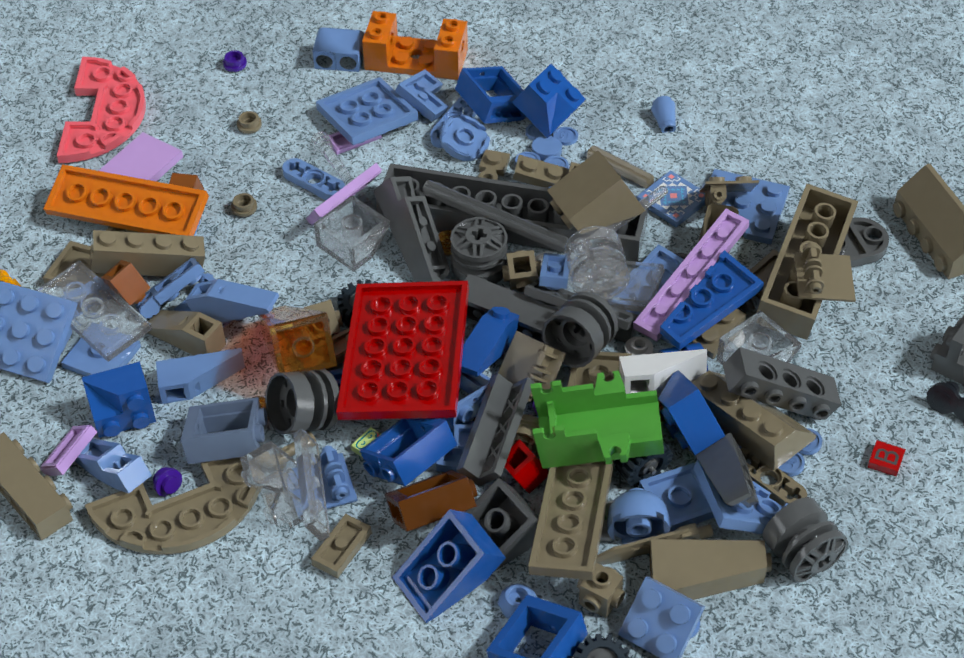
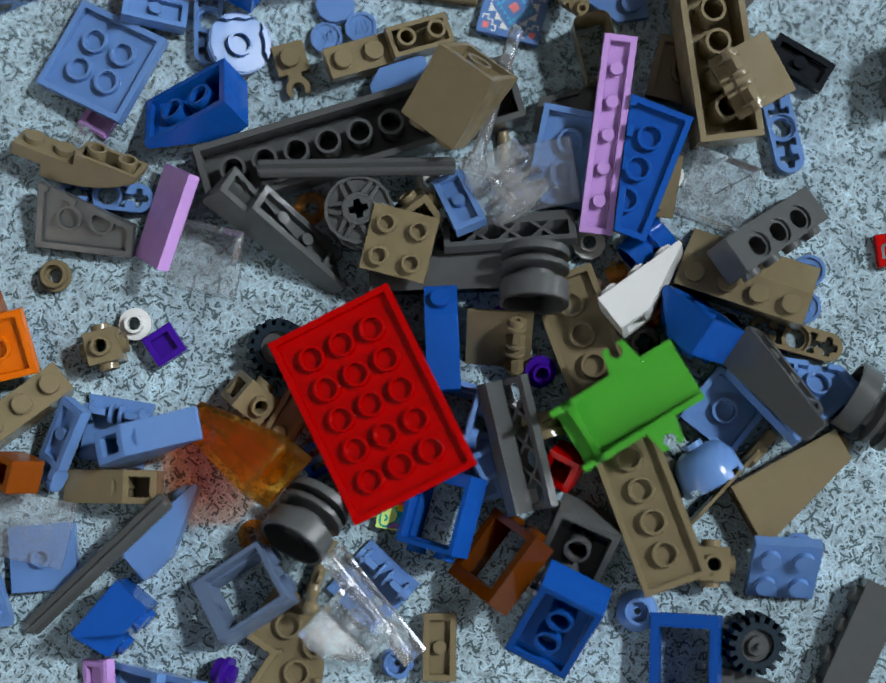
camera: 30 degrees left, 35 degrees up
(146, 358) = (98, 563): none -> dark grey axle
(244, 252) = (116, 347): none -> dark tan brick
(275, 253) = (145, 324): none -> white plate
(282, 184) = (80, 226): none -> dark grey wing
(286, 272) = (165, 345): none -> dark purple plate
(297, 535) = (391, 669): none -> medium blue plate
(309, 148) = (86, 167): none -> dark tan slope
(423, 152) = (198, 108): none -> blue slope
(494, 266) = (399, 243): none -> dark tan hinge
(834, 336) = (793, 149): none -> medium blue beam
(875, 312) = (803, 64): none -> black plate

